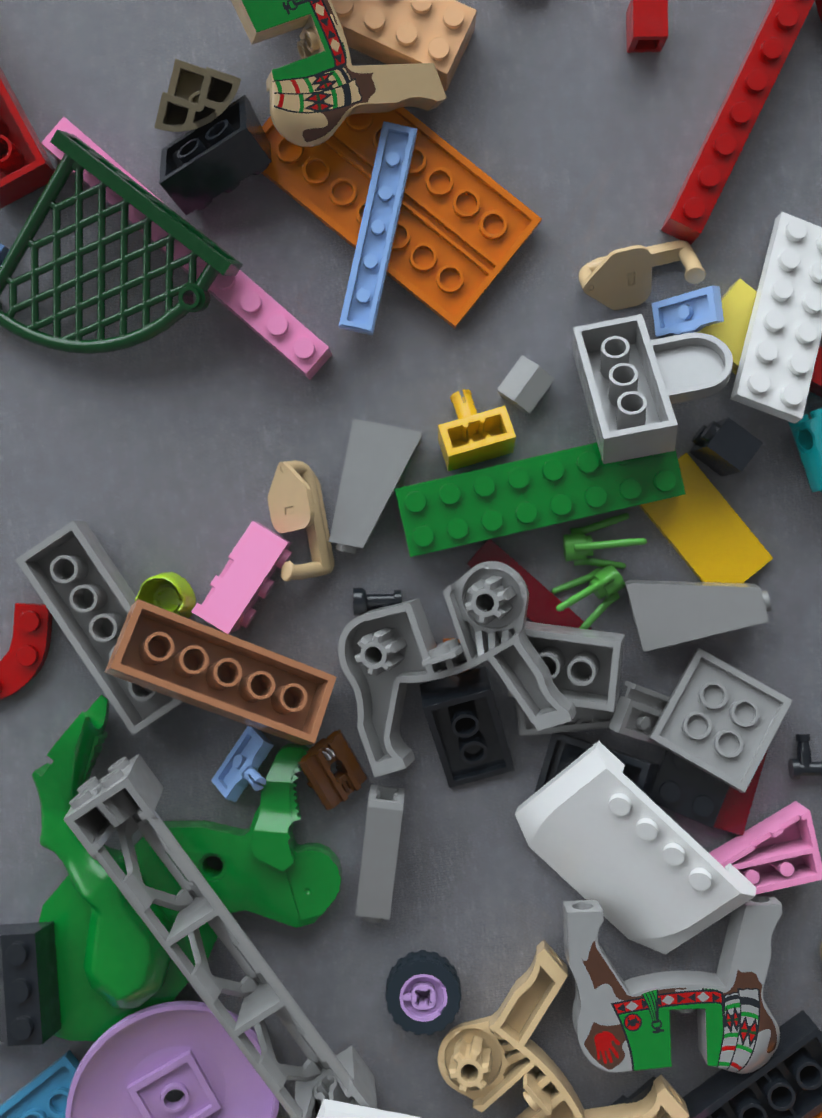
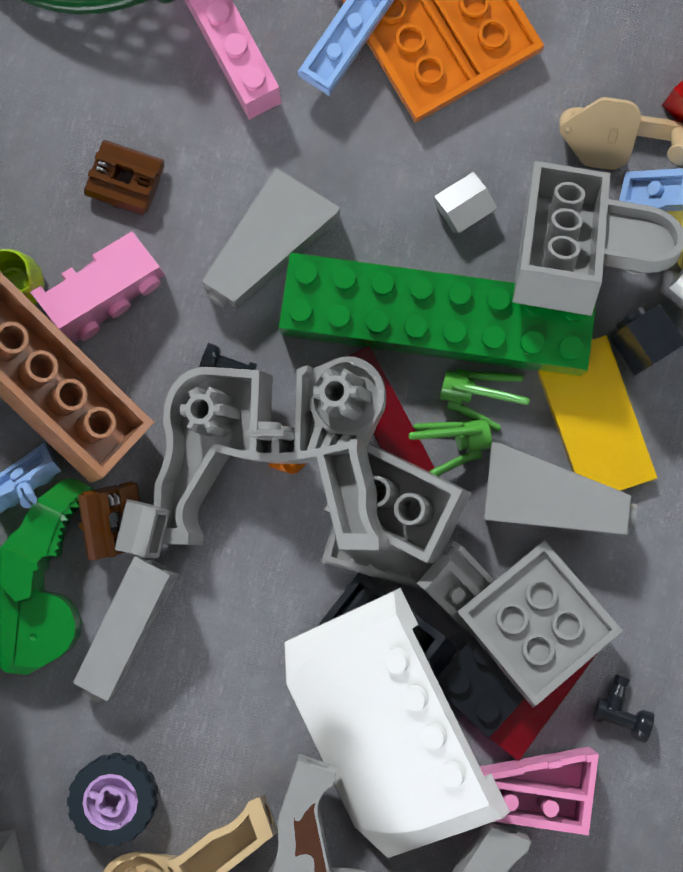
camera: 20 degrees right, 5 degrees down
(206, 465) = (104, 174): none -> reddish brown piece
(298, 504) = (182, 232): tan piece -> none
(362, 770) = (142, 529): none -> light grey piece
(466, 727) = (269, 531): black slope -> none
(474, 435) = (393, 232): yellow brick -> none

